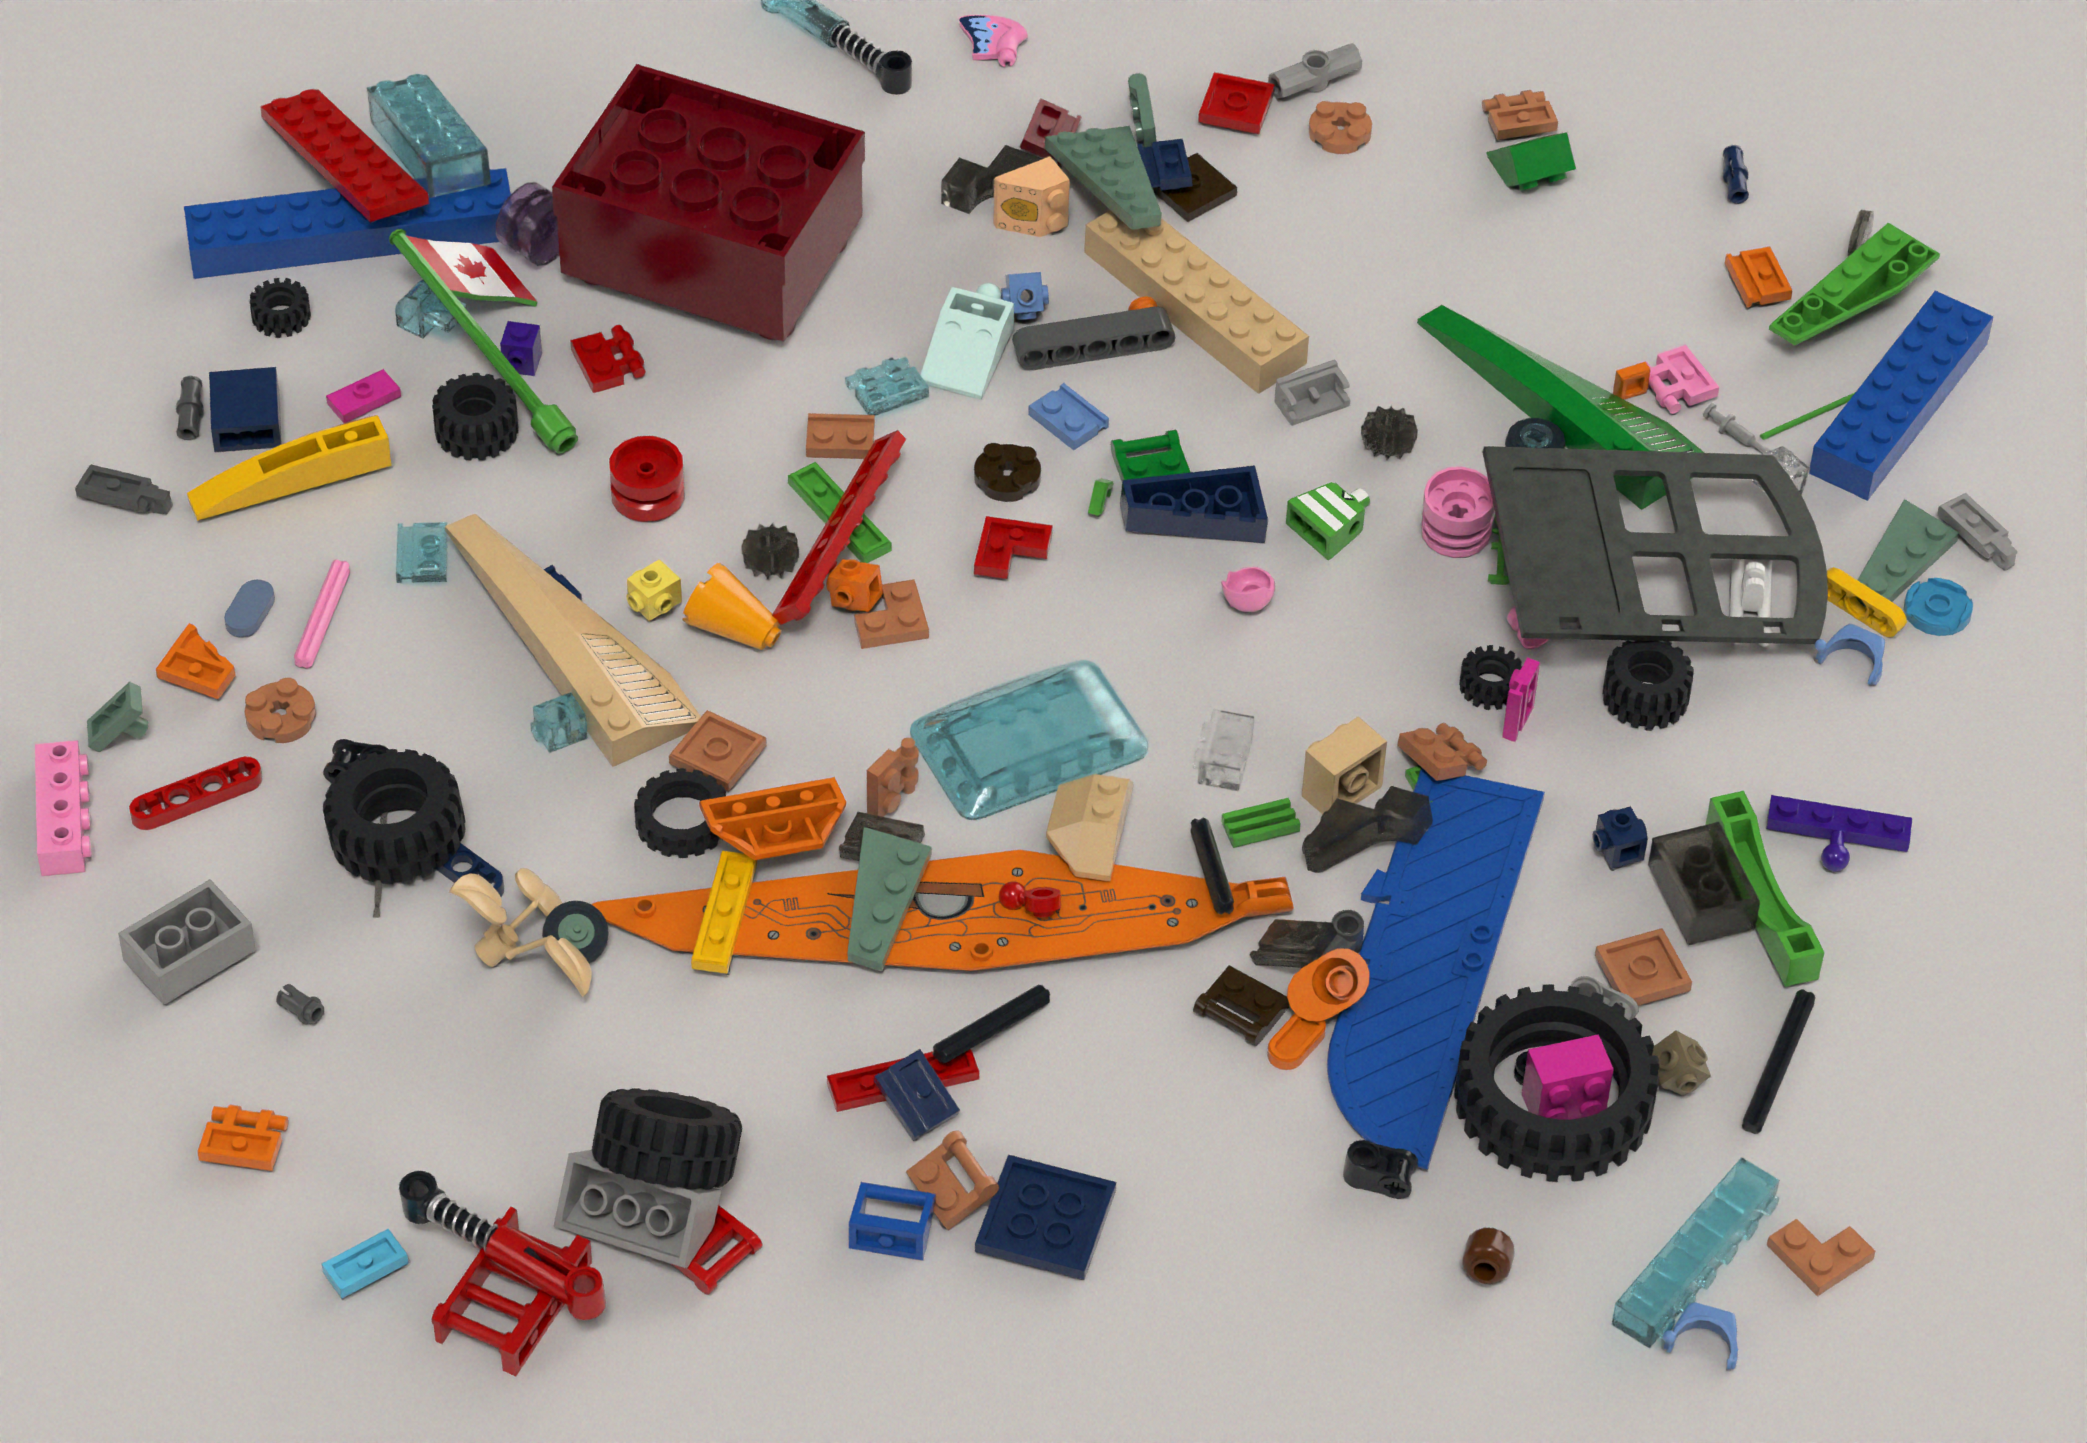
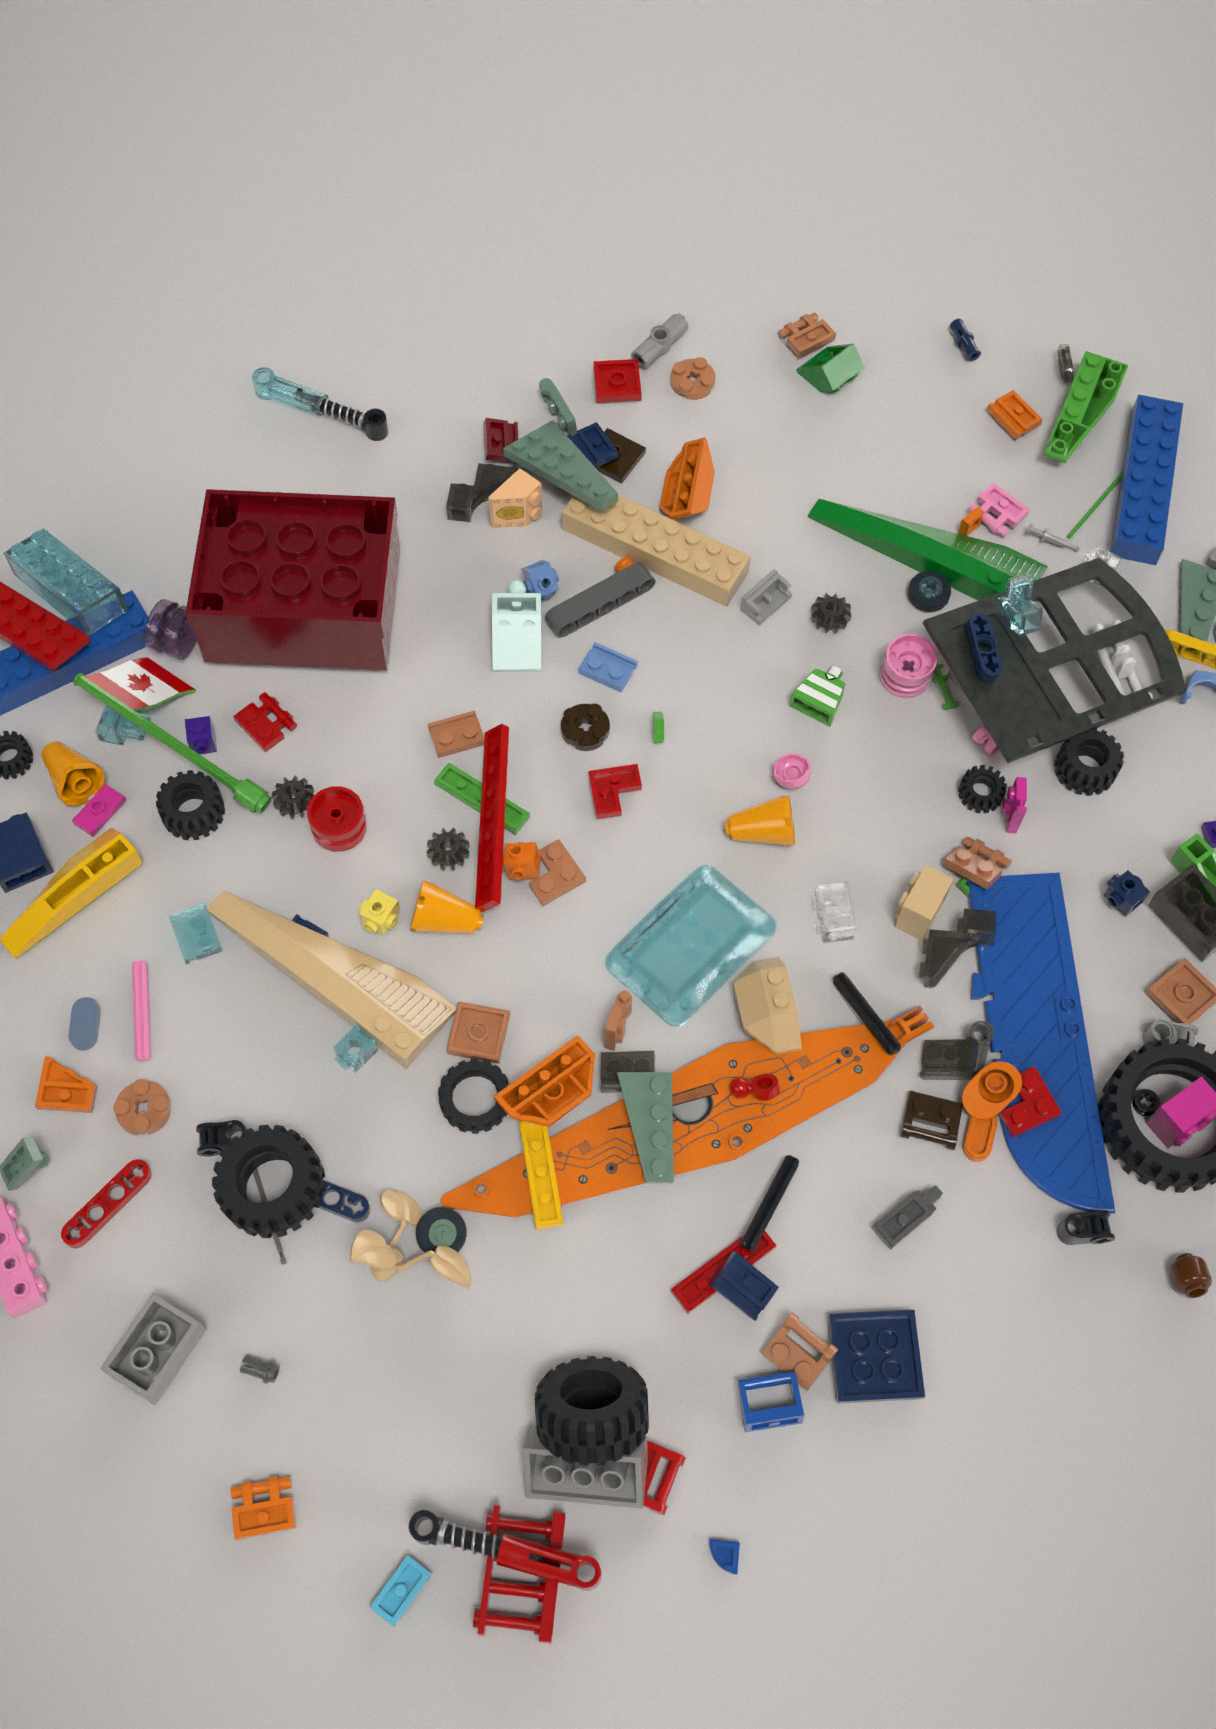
camera: 20 degrees left, 15 degrees up
(348, 346) = (71, 773): none -> light orange cone
(599, 440) = (294, 788): none -> clear smoke gear
(765, 1354) = (725, 1554): none -> blue tile
(887, 386) = (477, 687): clear light blue plate -> none
(993, 37) = (429, 375): bright pink arm -> none
(1153, 464) = (682, 692): green plate -> none
(1159, 1090) = (907, 1216): none -> dark grey hinge
(1185, 631) = (764, 823): none -> light orange cone
(1197, 504) = (731, 715): dark blue wedge -> none
(1258, 818) = (894, 947): bright green tile -> none
(1275, 237) = (688, 481): none -> orange wedge
(1378, 1029) = (1036, 1105): none -> red plate
(1540, 507) = (981, 657): none -> dark blue beam
(1617, 464) = (1018, 609): none -> clear light blue brick

